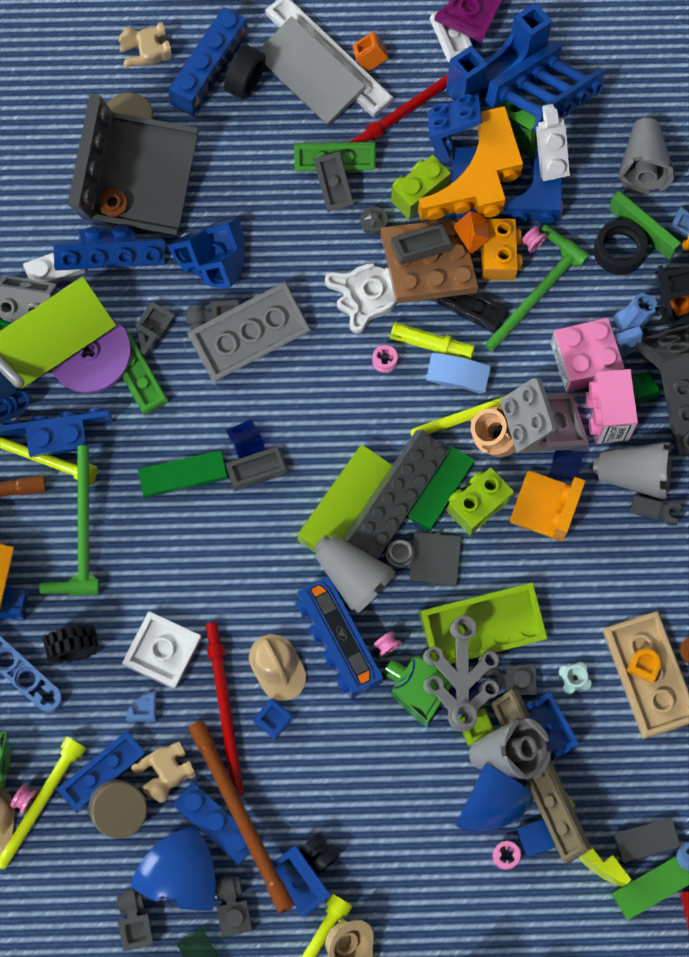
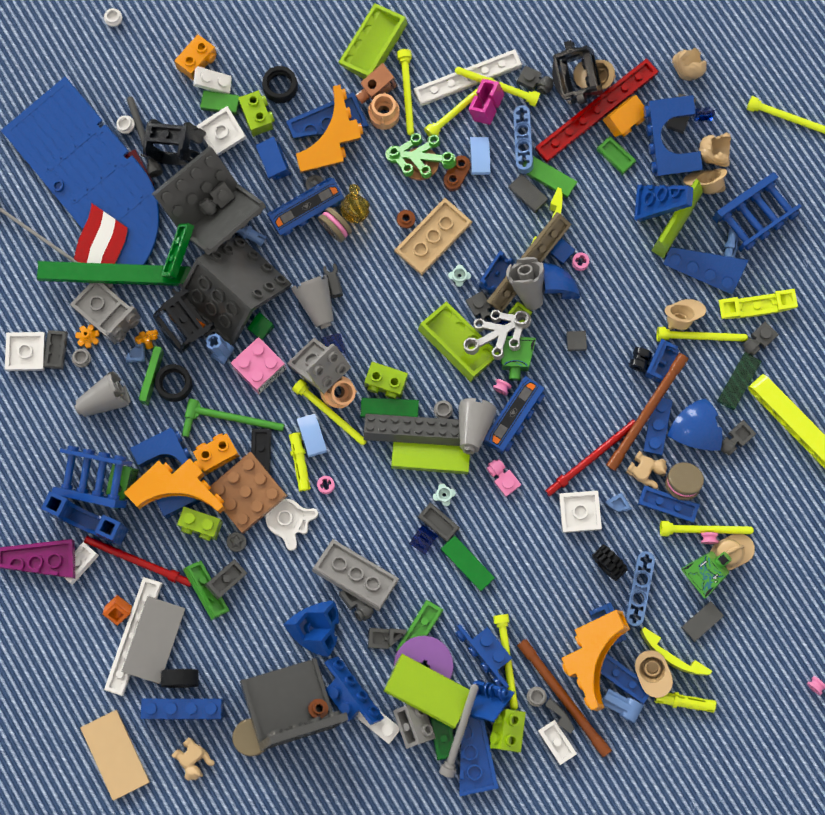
camera: 115 degrees left, 5 degrees up
(83, 582) = (566, 581): bright green bar -> none
(233, 916) = (699, 387): dark grey plate -> none
(257, 580) = (507, 481): none -> bright pink plate
(273, 719) = (581, 427): blue tile -> none
(277, 667) = (549, 443): tan piece -> none
(288, 485) = (442, 488): none -> light aqua plate
(395, 783) = (576, 341): none -> dark grey tile
(421, 243) = (241, 499): dark grey tile -> none
(435, 559) = (433, 389): dark grey piece -> none
(450, 119) = (147, 521): blue bracket -> none
(472, 230) = (215, 472): orange slope -> none
(533, 239) = (197, 436): bright pink bush -> none
(546, 505) = (366, 340): light orange bracket -> none
(552, 145) = (136, 448): white hinge -> none
(612, 406) = (286, 332): bright pink brick -> none
(627, 340) = (238, 347): medium blue tile -> none
(645, 665) = (431, 240): light orange tile -> none

